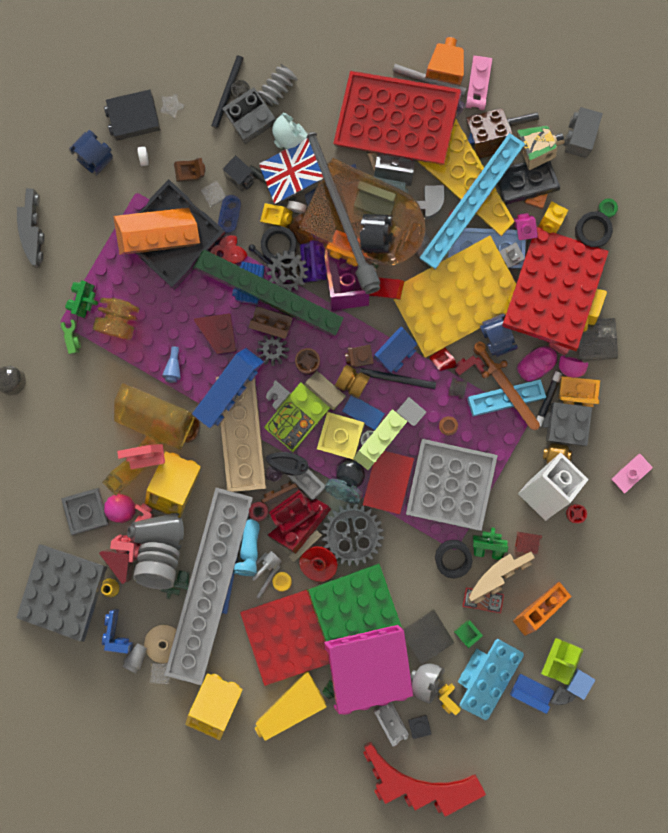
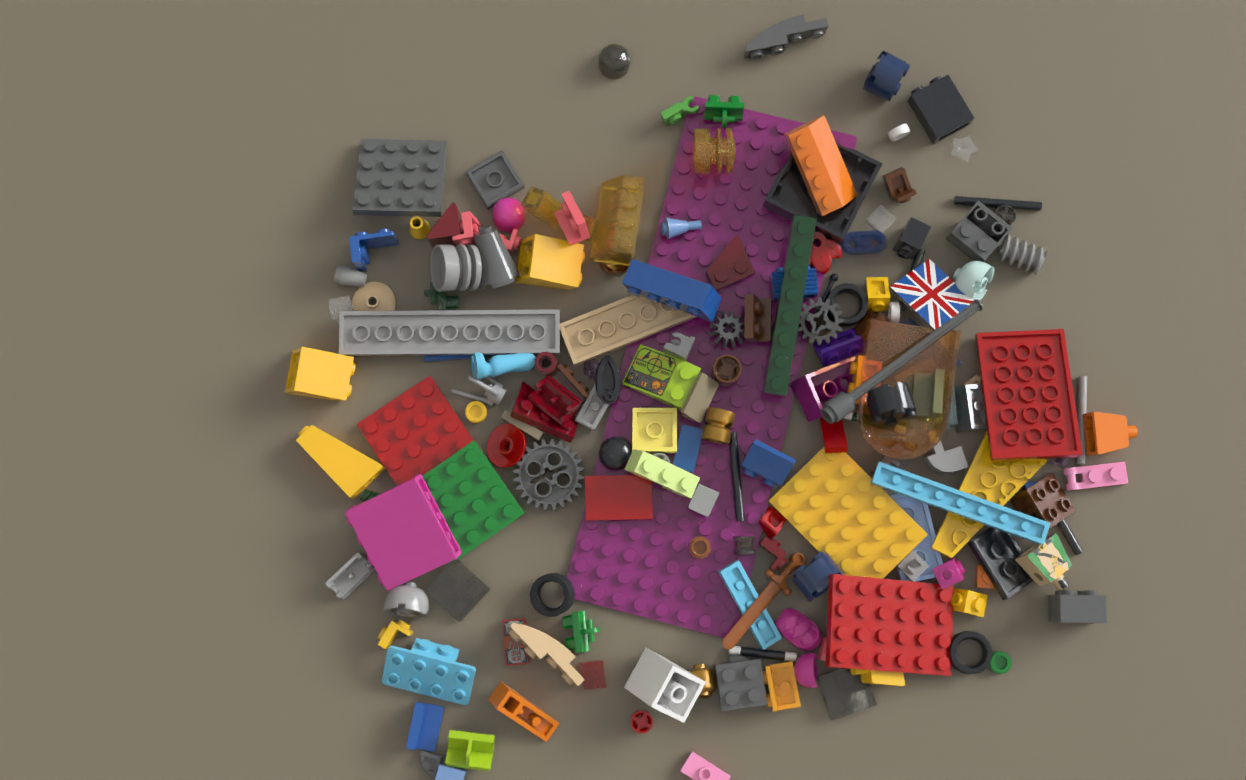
camera: 70 degrees right, 5 degrees down
(339, 490) = (594, 444): clear light blue tile -> none
(359, 356) = (748, 426): reddish brown bracket -> none
(393, 784) = (284, 597): red arch -> none
(419, 726) = (355, 609): black plate -> none
(451, 484) = (634, 569): light grey plate -> none
(468, 633) = (473, 635): green panel -> none

